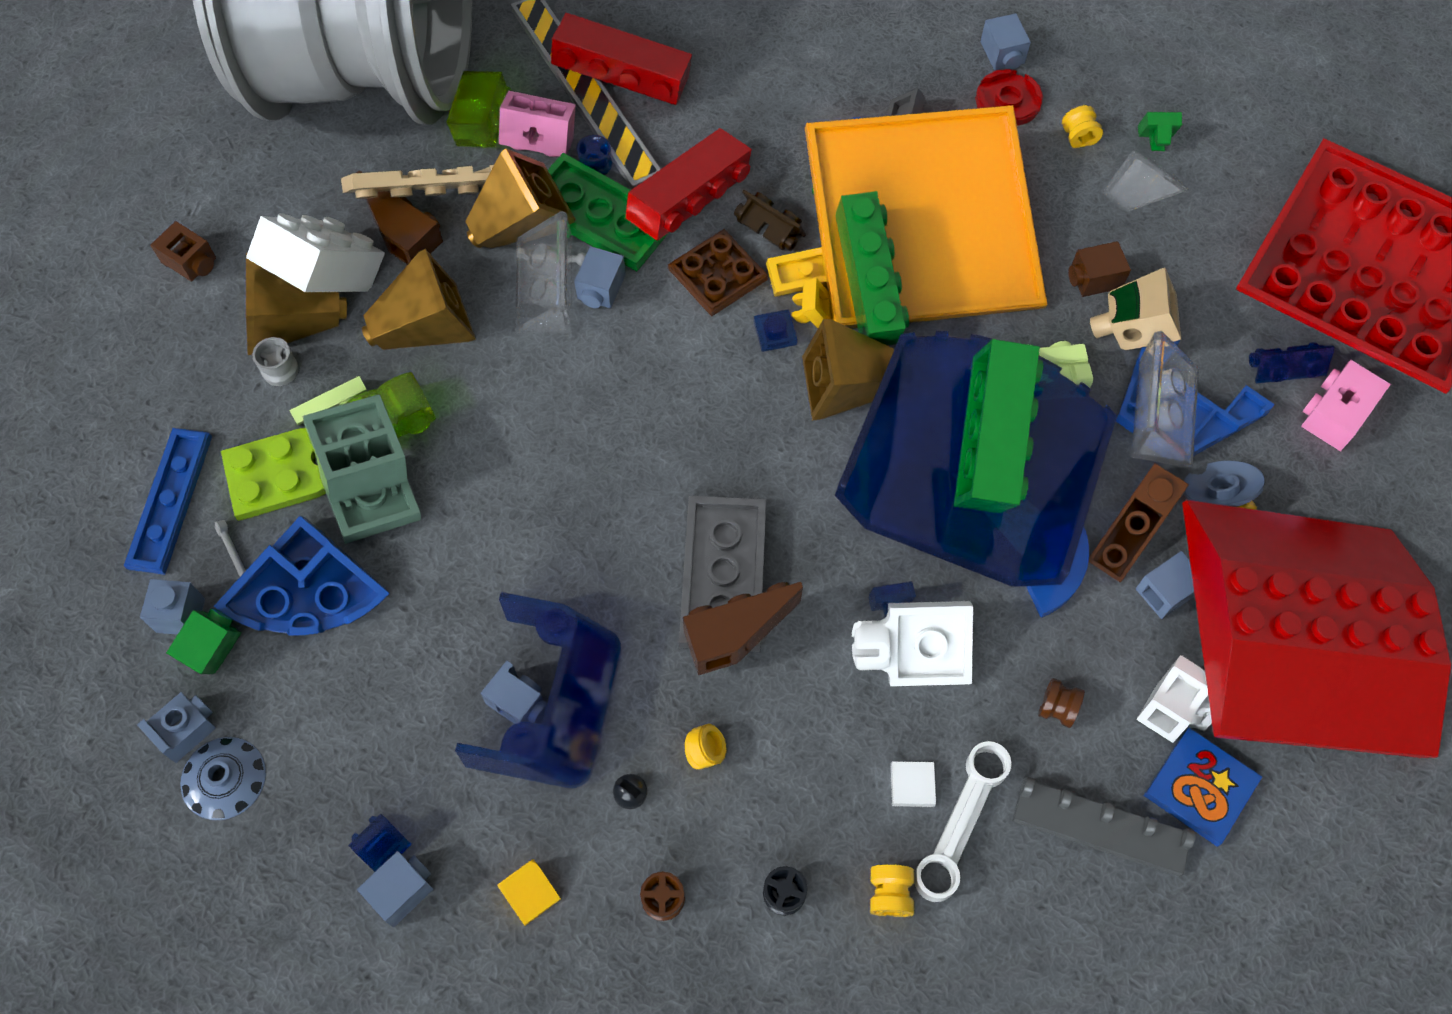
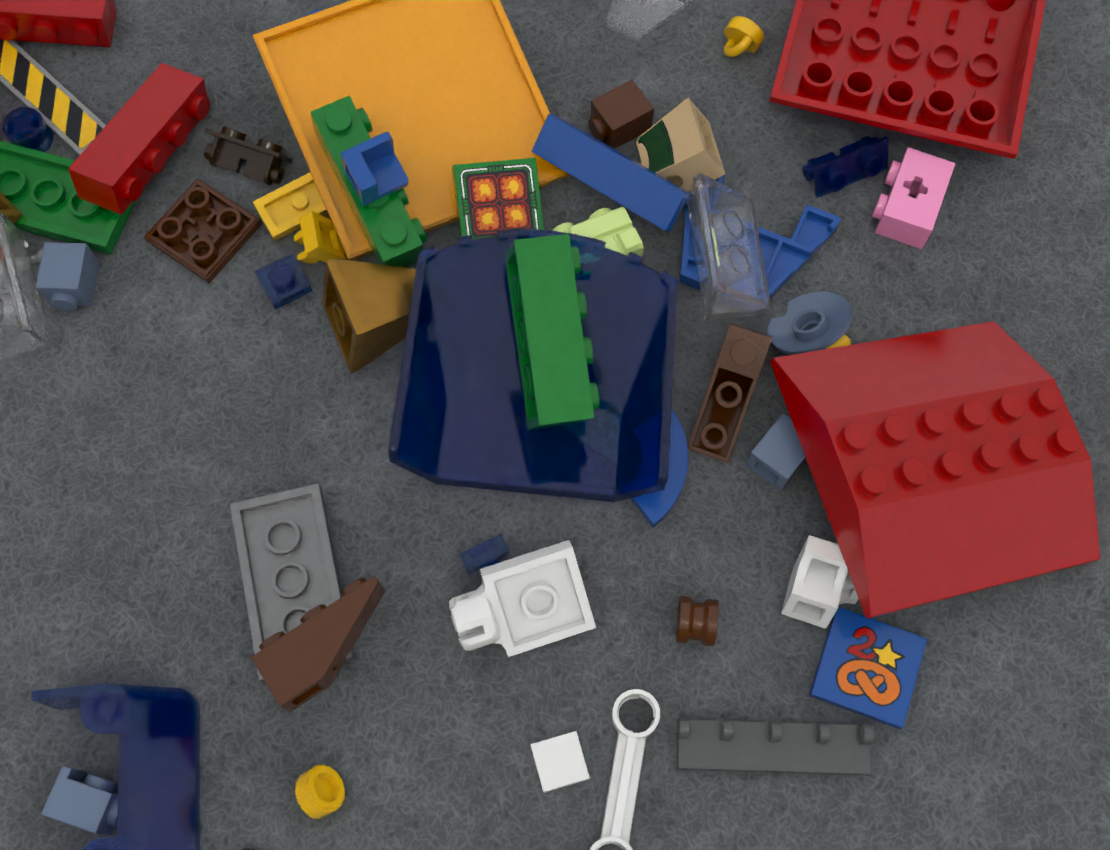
camera: 15 degrees left, 5 degrees up
(883, 254) = (374, 168): none -> blue panel
(976, 306) = (497, 197): none -> tile
(1080, 312) = (610, 172): none -> blue tile
(1223, 229) = (741, 36): none -> yellow tile

